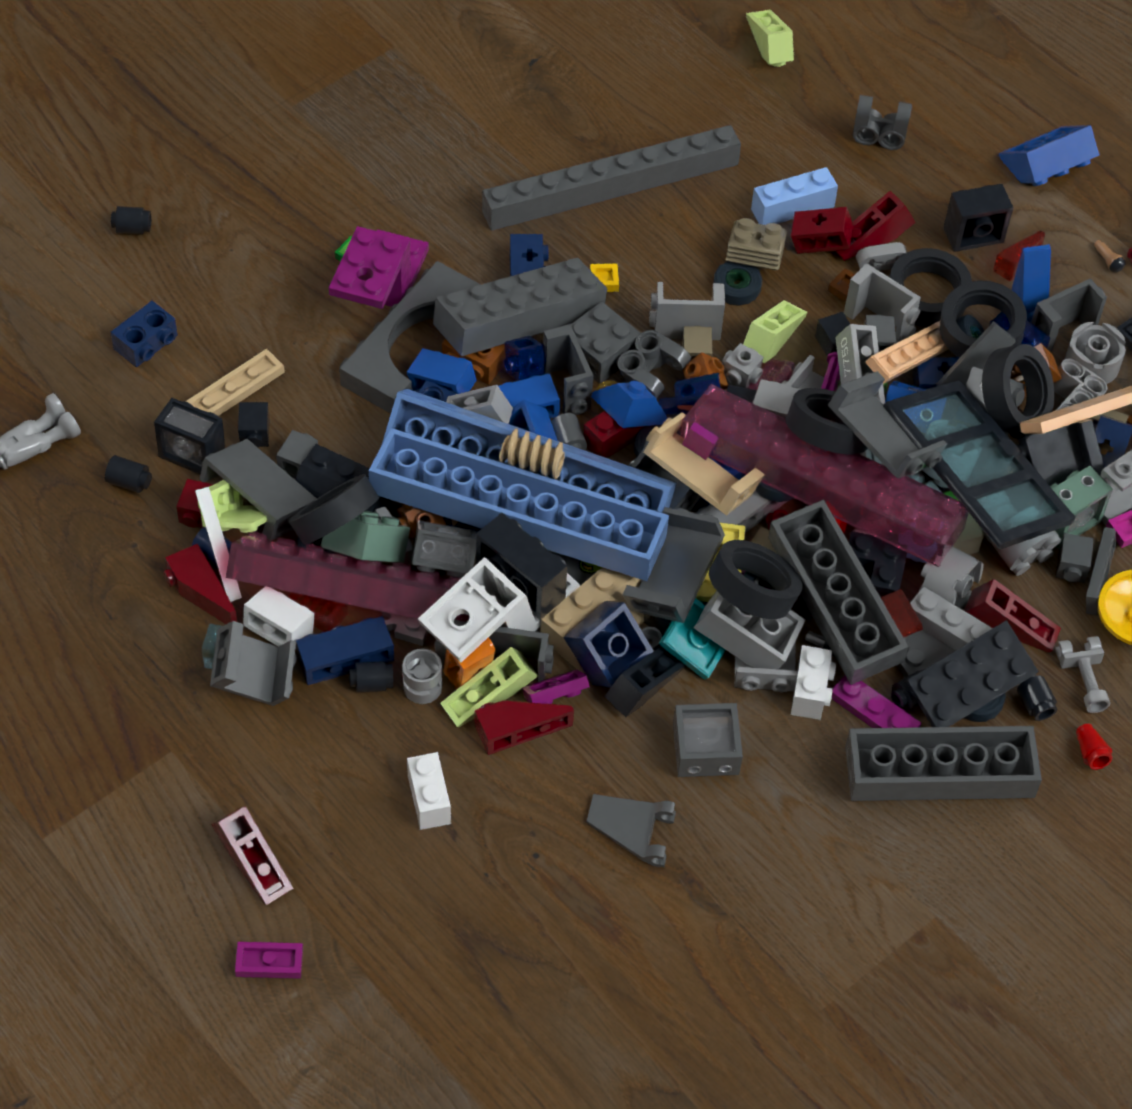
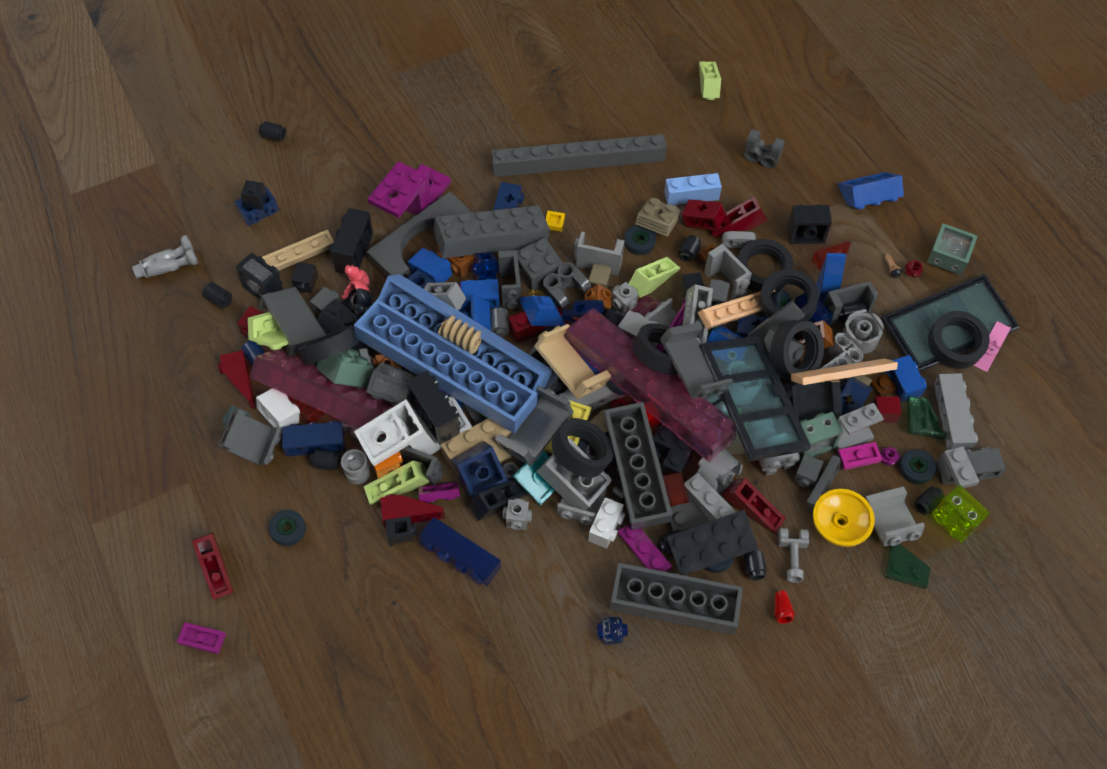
camera: 15 degrees right, 5 degrees up
(143, 315) = (254, 195): none -> black brick
(217, 541) = (251, 348): white sticker -> none
(312, 359) = (351, 240): none -> black brick
(344, 429) = (357, 293): none -> hair
(345, 768) = (290, 537): none -> black bush
(429, 791) = (336, 545): white brick -> none
(516, 751) = (396, 525): none -> black brick
(612, 763) = (460, 552): none -> clear blue brick
(631, 824) = (460, 595): dark grey flag -> none
(679, 690) = (517, 514): none -> light grey brick
(700, 440) = (575, 345): magenta tile -> none
(707, 739) = (524, 549): piece -> none
(814, 282) = (689, 248): none -> black brick
(863, 826) = (611, 630): none -> clear blue head
(1068, 326) = (848, 309): none -> black brick

